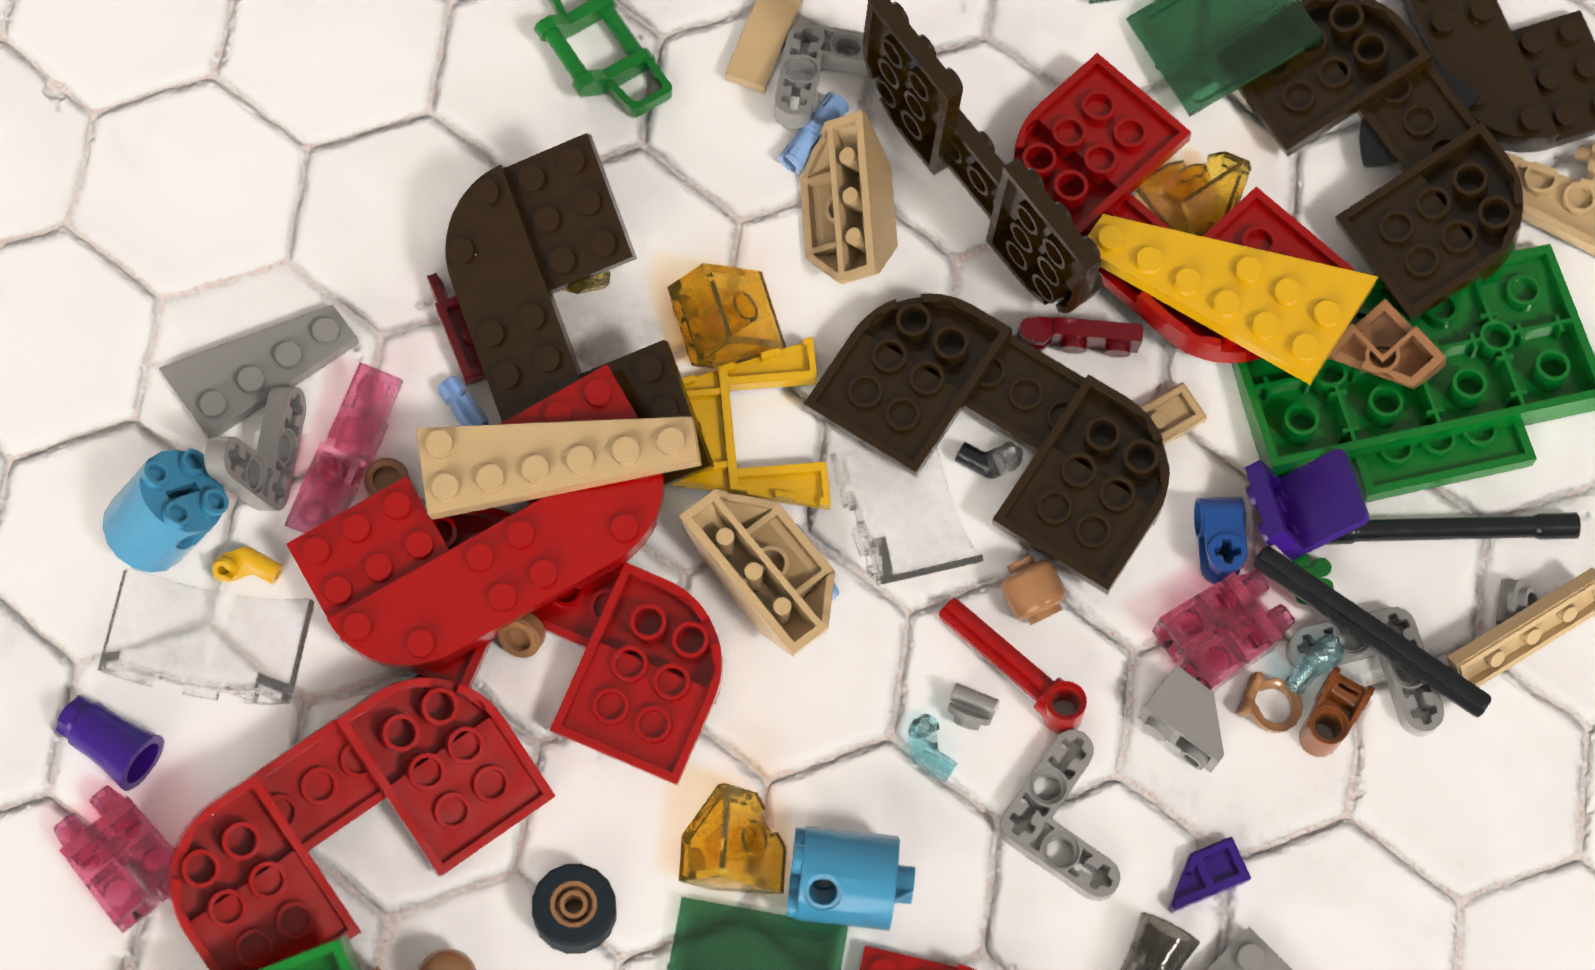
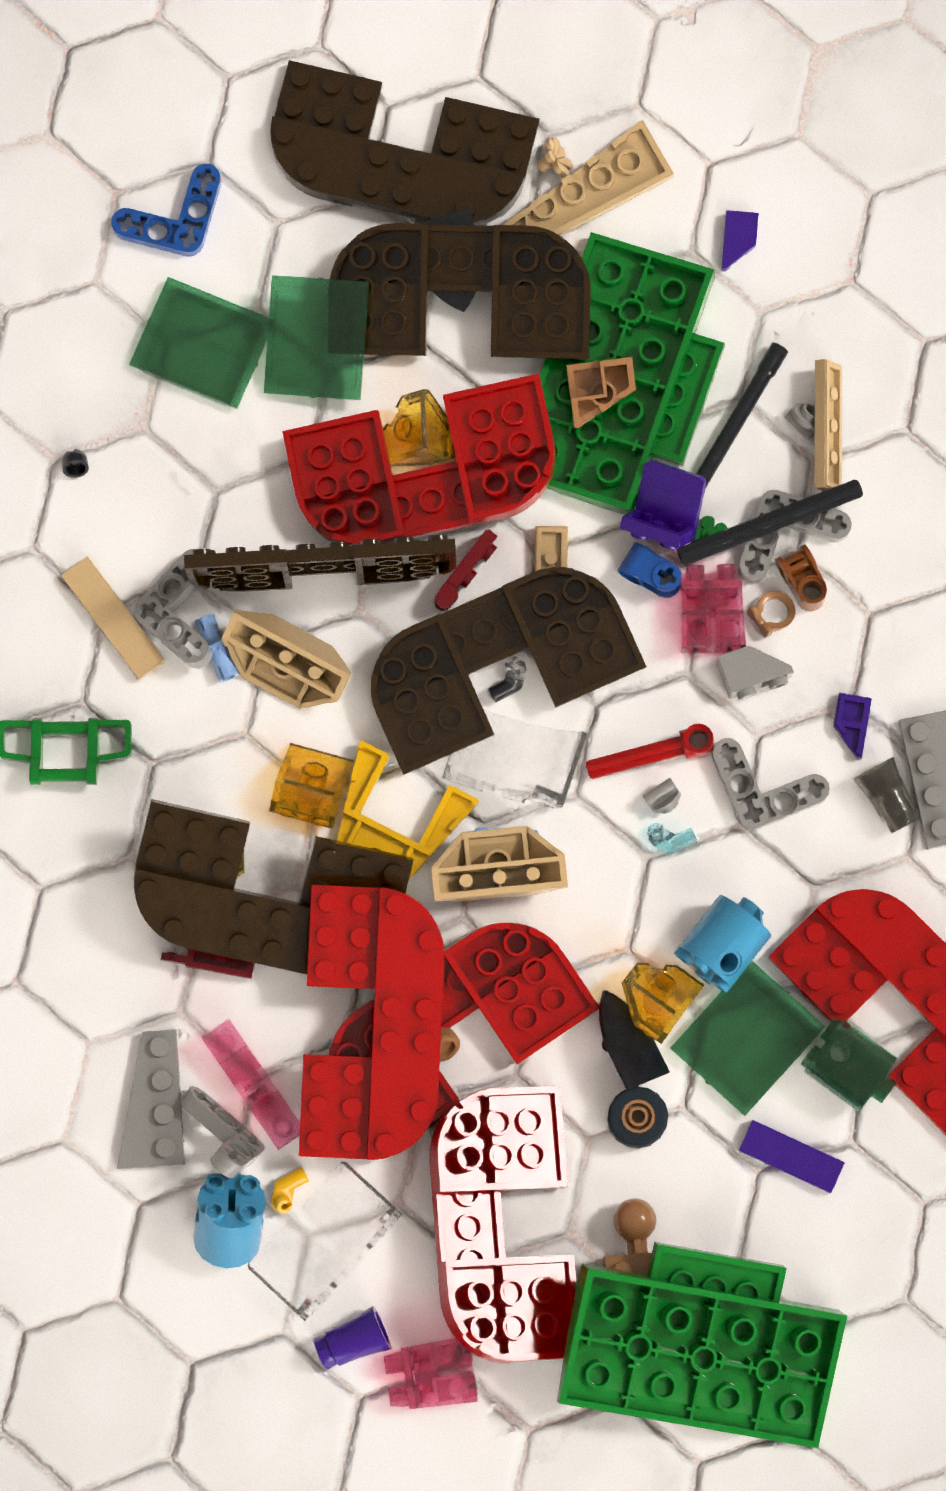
camera: 50 degrees left, 10 degrees up
(383, 474) = (285, 1067): medium nougat tile -> none
(462, 404) = (273, 989): light blue axle -> none
(516, 463) = (345, 978): tan wing -> none
(647, 846) = (629, 1048): none -> black shield
(1033, 589) = (612, 710): medium nougat head -> none
(1257, 298) = (521, 448): yellow wing -> none
(1318, 660) = (768, 569): clear light blue arm -> none

